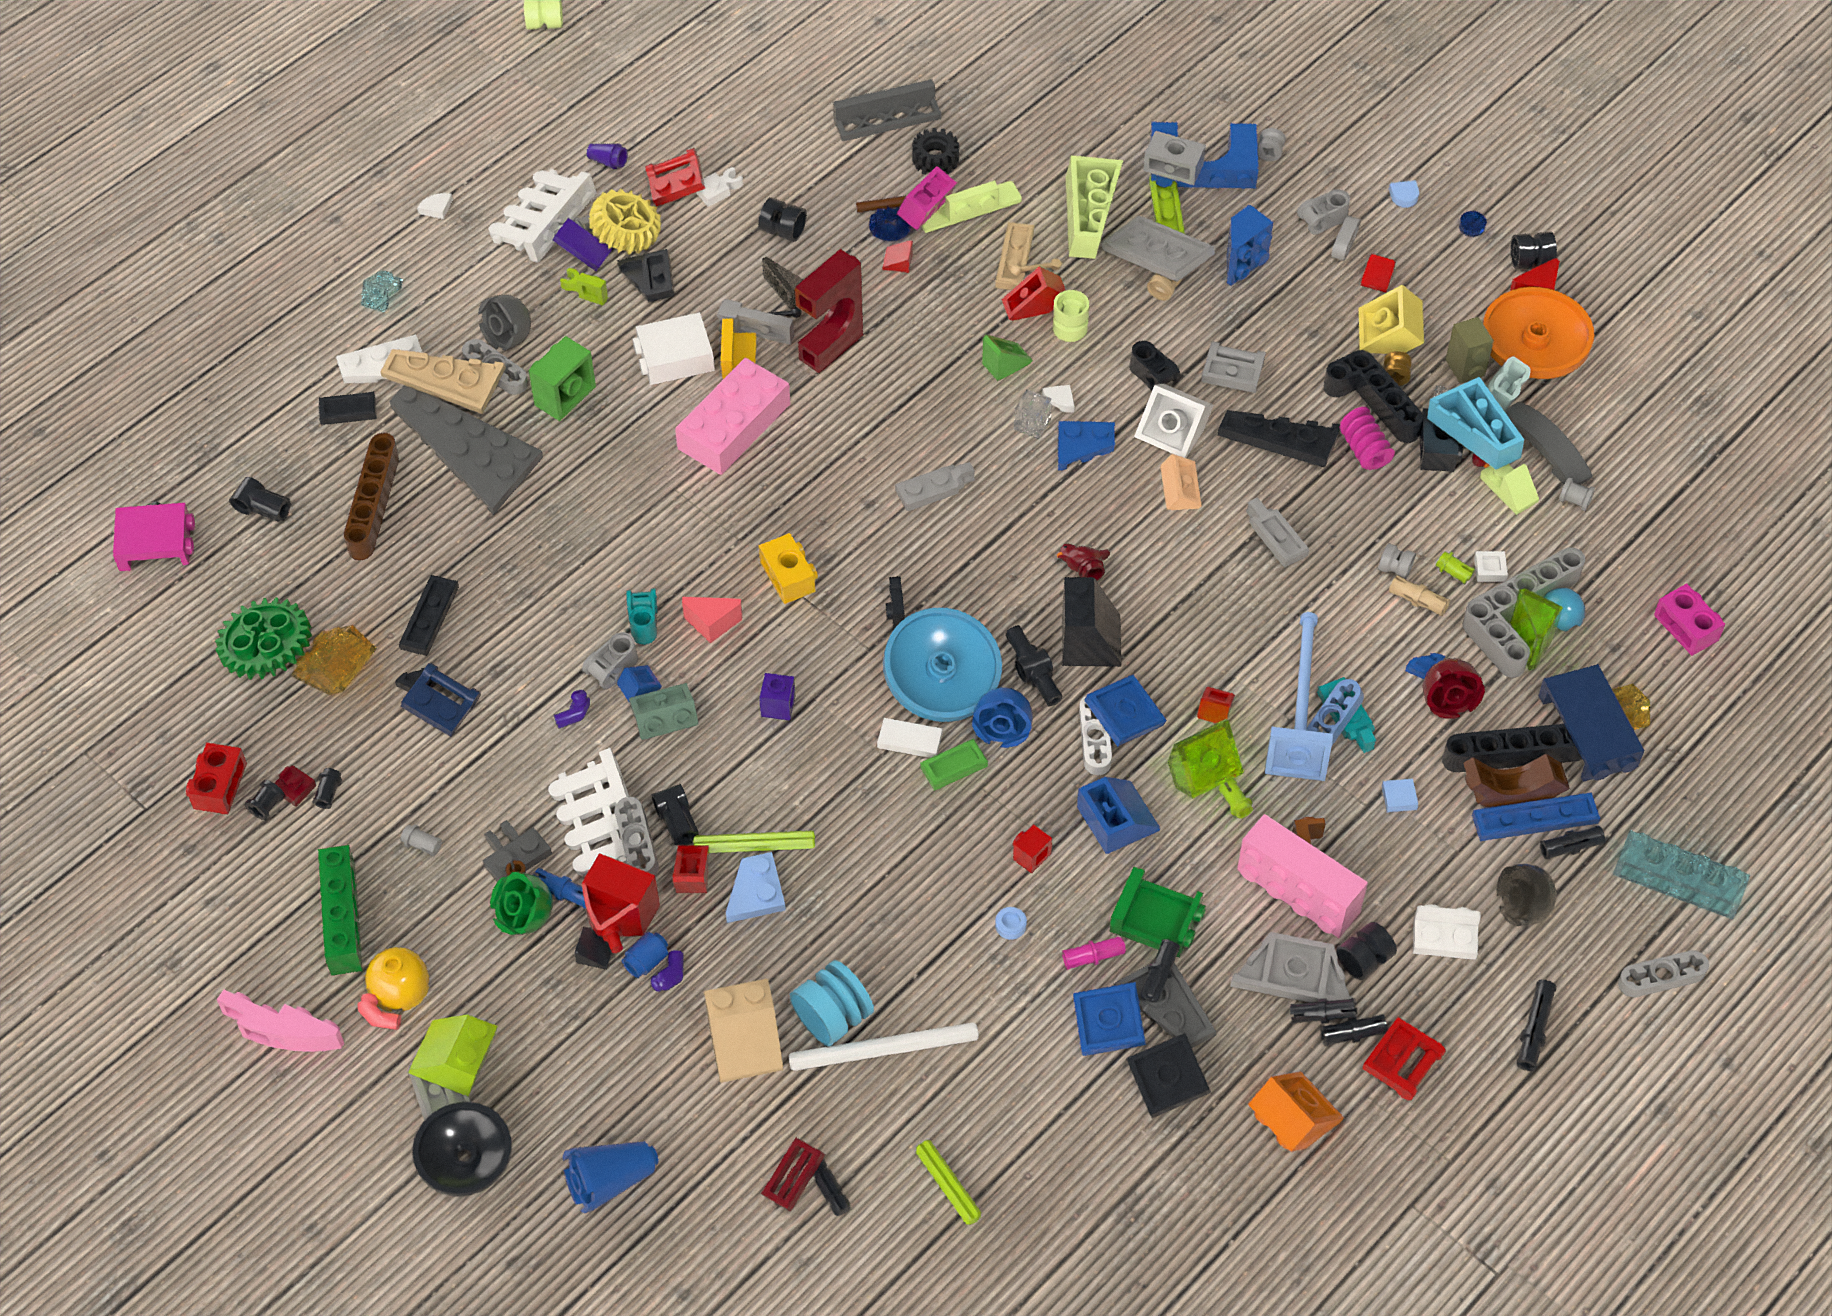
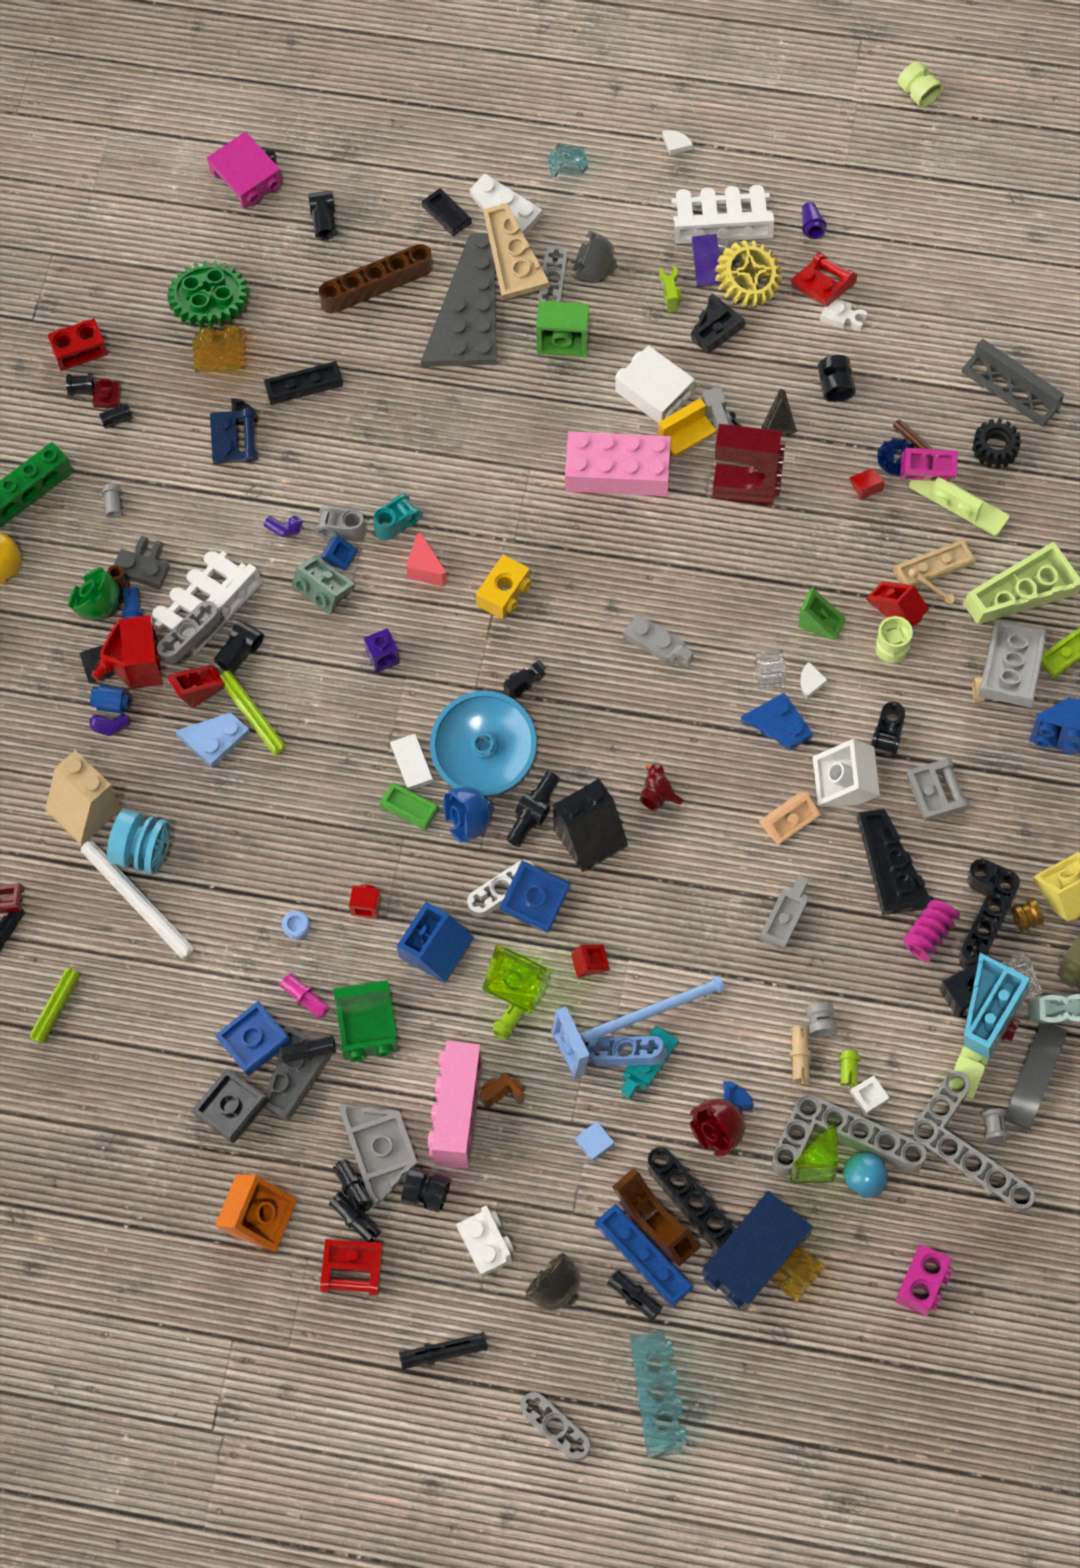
camera: 60 degrees right, 10 degrees up
(1589, 525) = (965, 1151): none -> light grey beam

